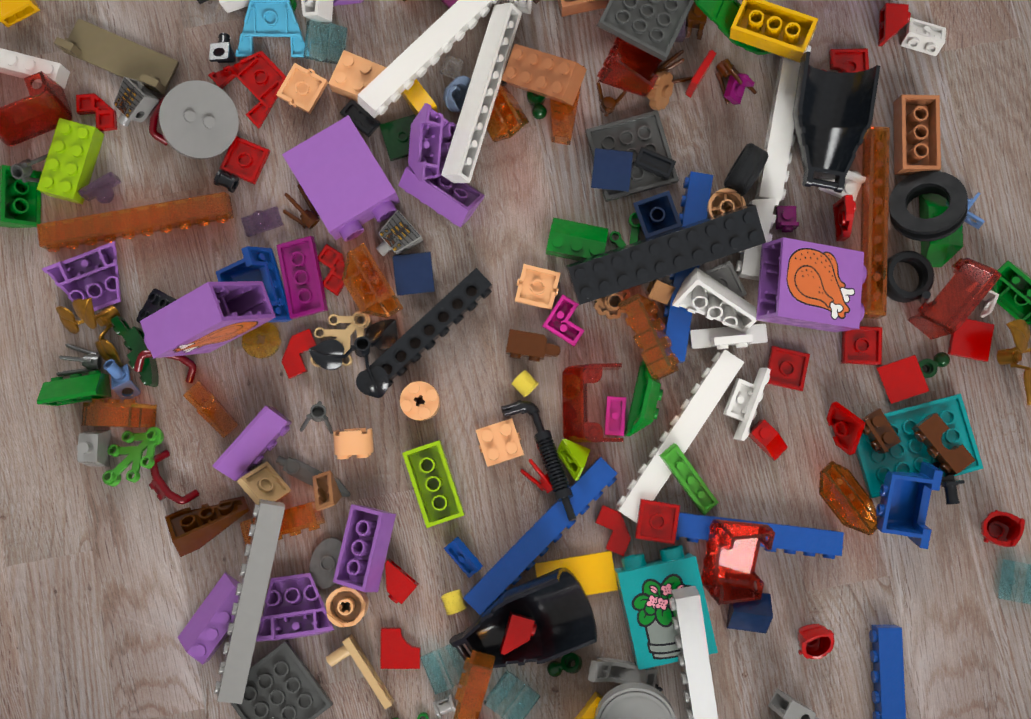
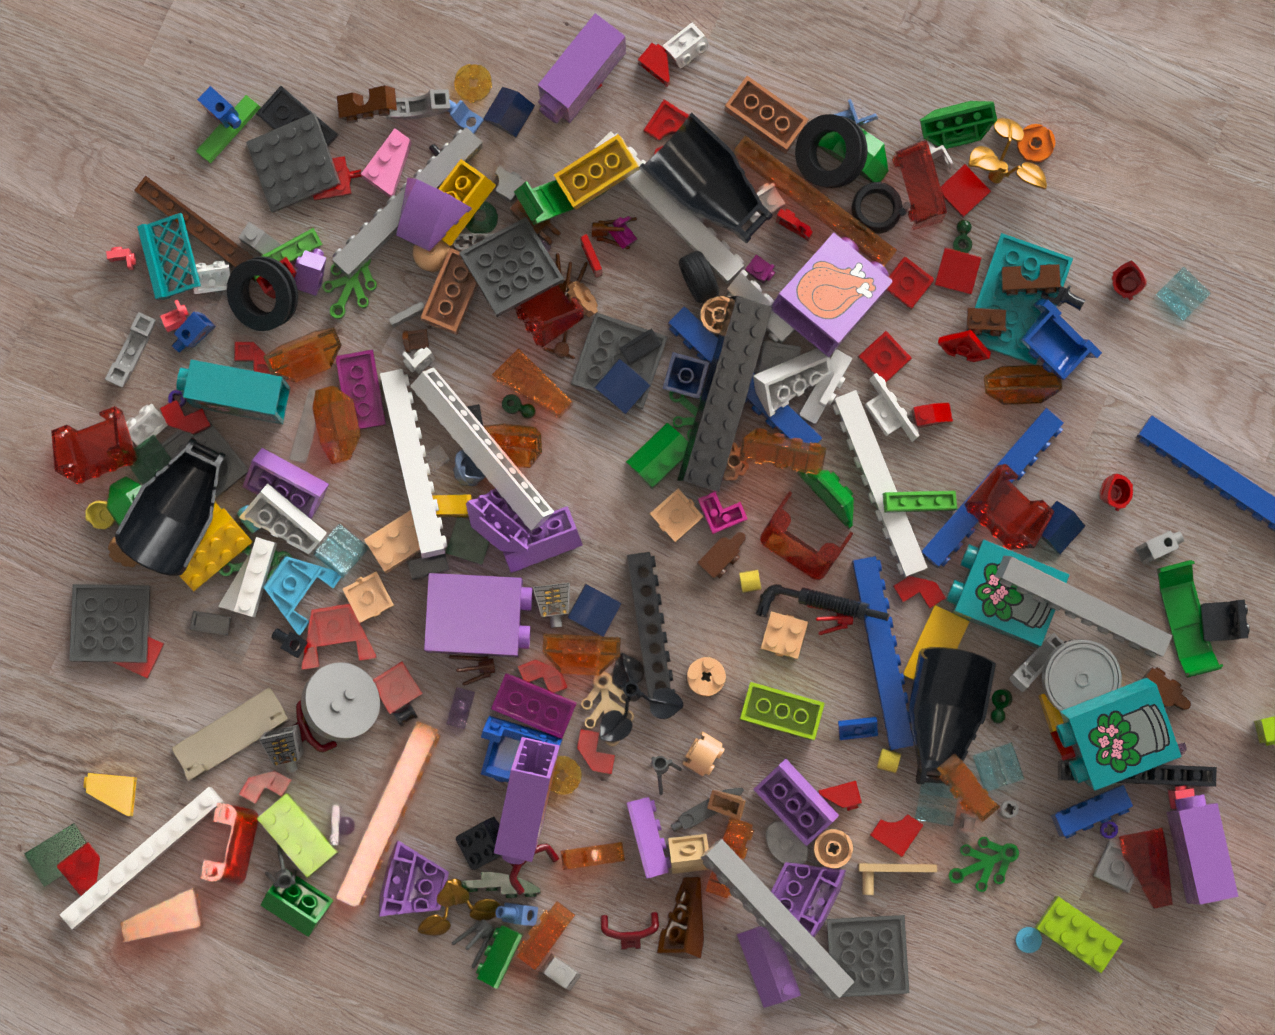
camera: 55 degrees left, 0 degrees up
(149, 441) = (588, 943): bright green plant -> none
(517, 632) = (947, 724): red slope -> none
(544, 74) = (505, 388): nougat brick -> none
(573, 456) = (838, 583): lime slope -> none
(615, 416) = (827, 525): dark pink plate -> none
(657, 521) = (936, 550): red tile -> none
(659, 291) = (751, 418): medium nougat slope -> none

